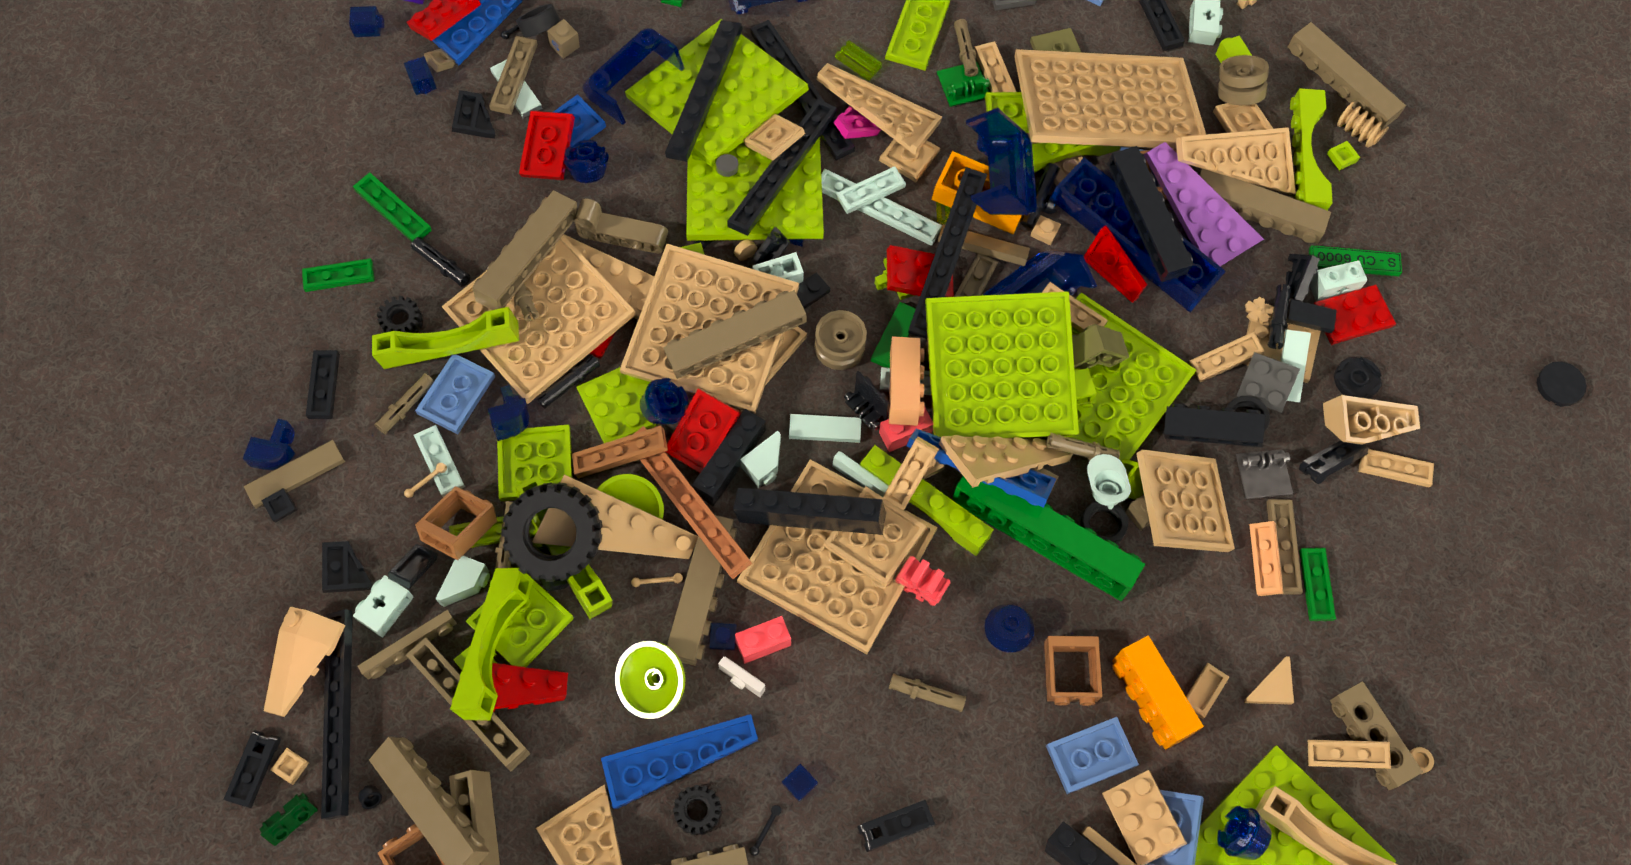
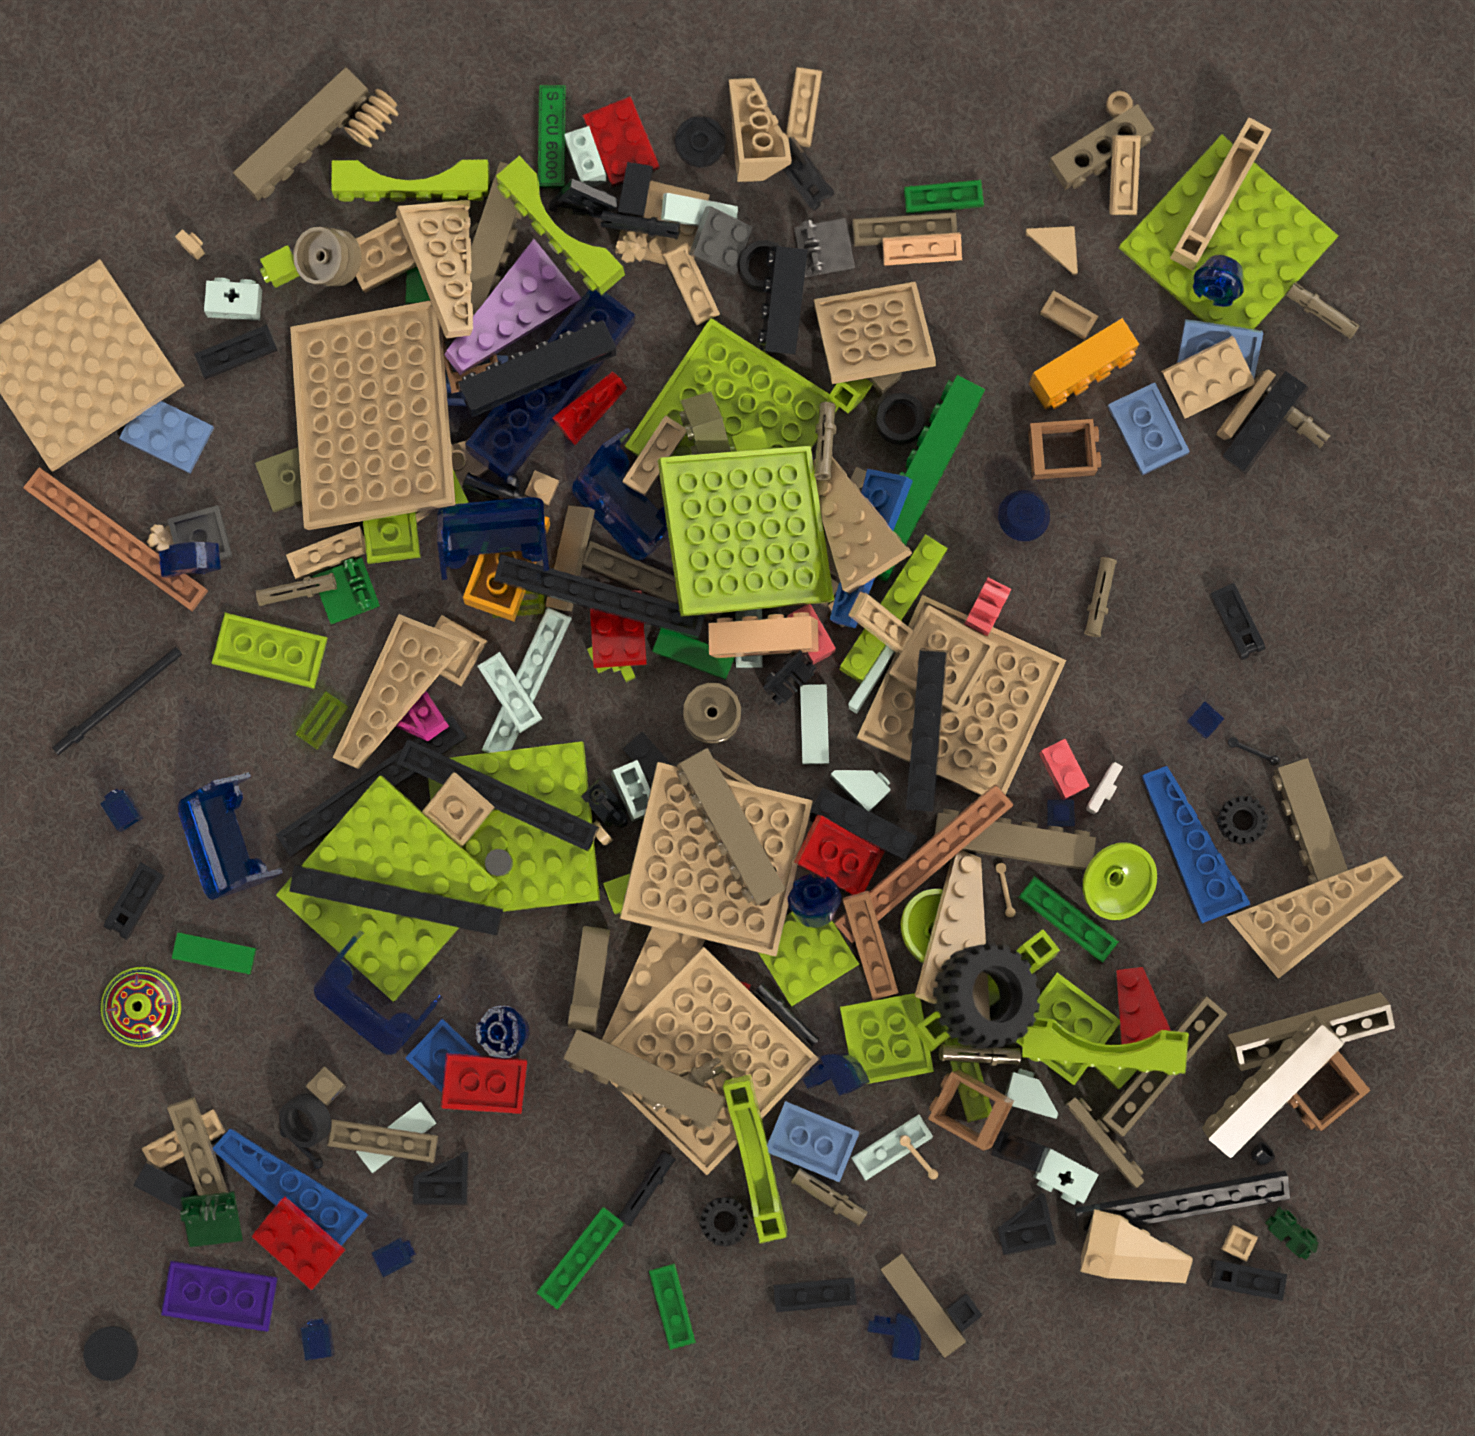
camera: 95 degrees left, 15 degrees up
(439, 60) = (366, 1238): dark tan tile -> none
(622, 634) = (1068, 919): none -> green tile
(1108, 480) = (862, 413): light aqua piece -> none
(1308, 223) = (593, 262): none -> lime arch
(1343, 155) = (413, 142): lime plate -> none

